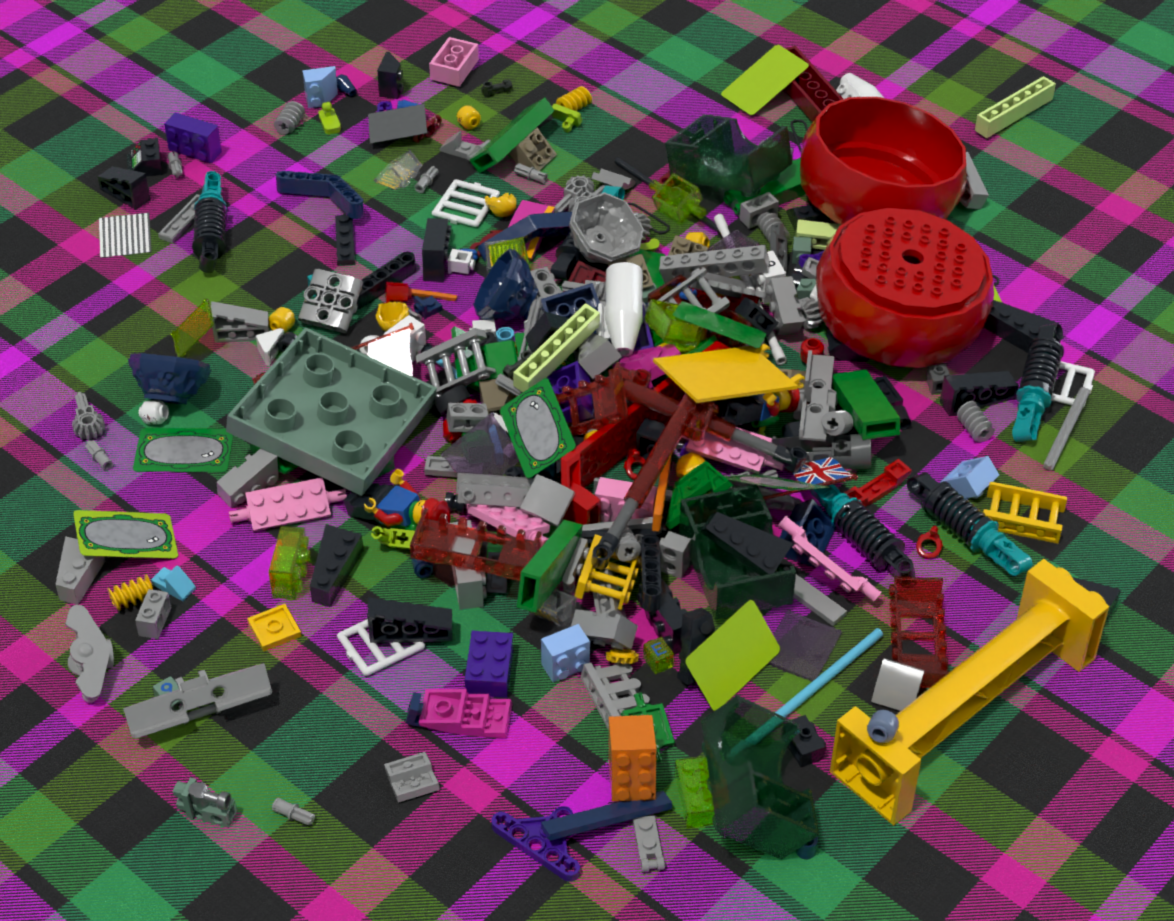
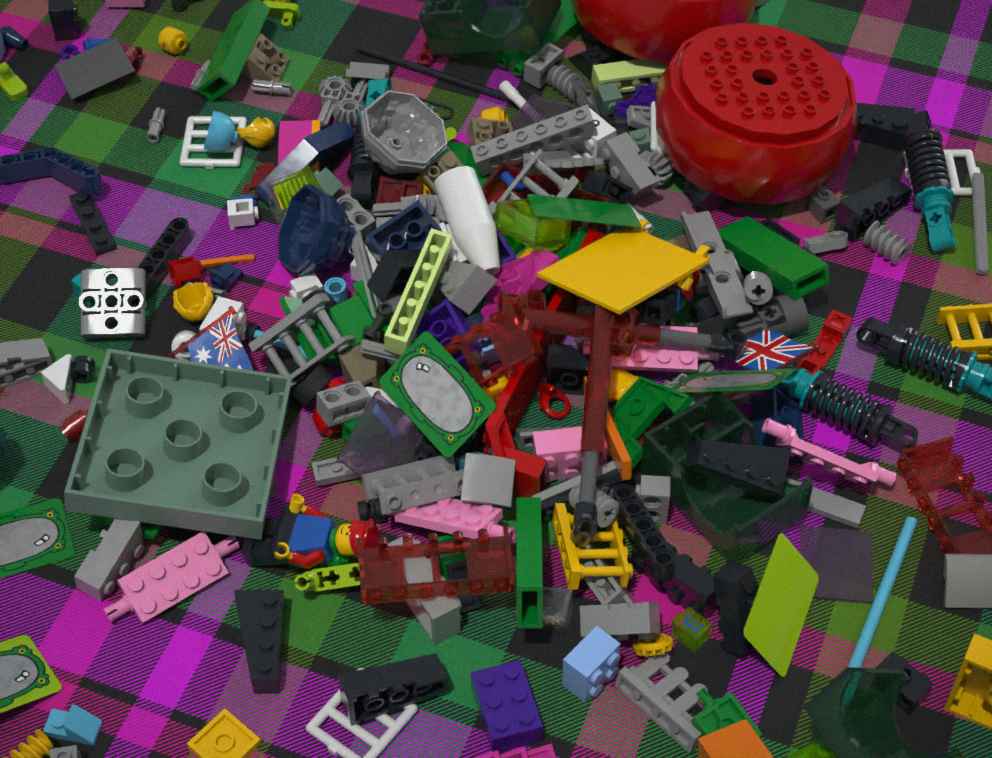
camera: 20 degrees left, 5 degrees up
(282, 318) = (62, 342): yellow head -> none
(289, 563) = (211, 655): clear neon green brick -> none
(399, 171) = (121, 123): clear slope -> none
(422, 568) = (369, 611): dark blue cone -> none
(435, 249) = (207, 205): black wedge -> none
(457, 147) = (173, 78): light grey slope -> none
(470, 196) = (220, 133): none -> medium azure cylinder
(536, 256) = (328, 181): none -> sand green brick
(575, 566) = (549, 550): light grey plate -> none
(677, 198) = (451, 74): clear neon green brick -> none
(812, 344) = (675, 207): red head -> none
(927, 408) = (826, 242): none -> light grey piece
(932, 535) = (910, 386): red piece -> none
(972, 476) = (915, 306): light blue slope -> none

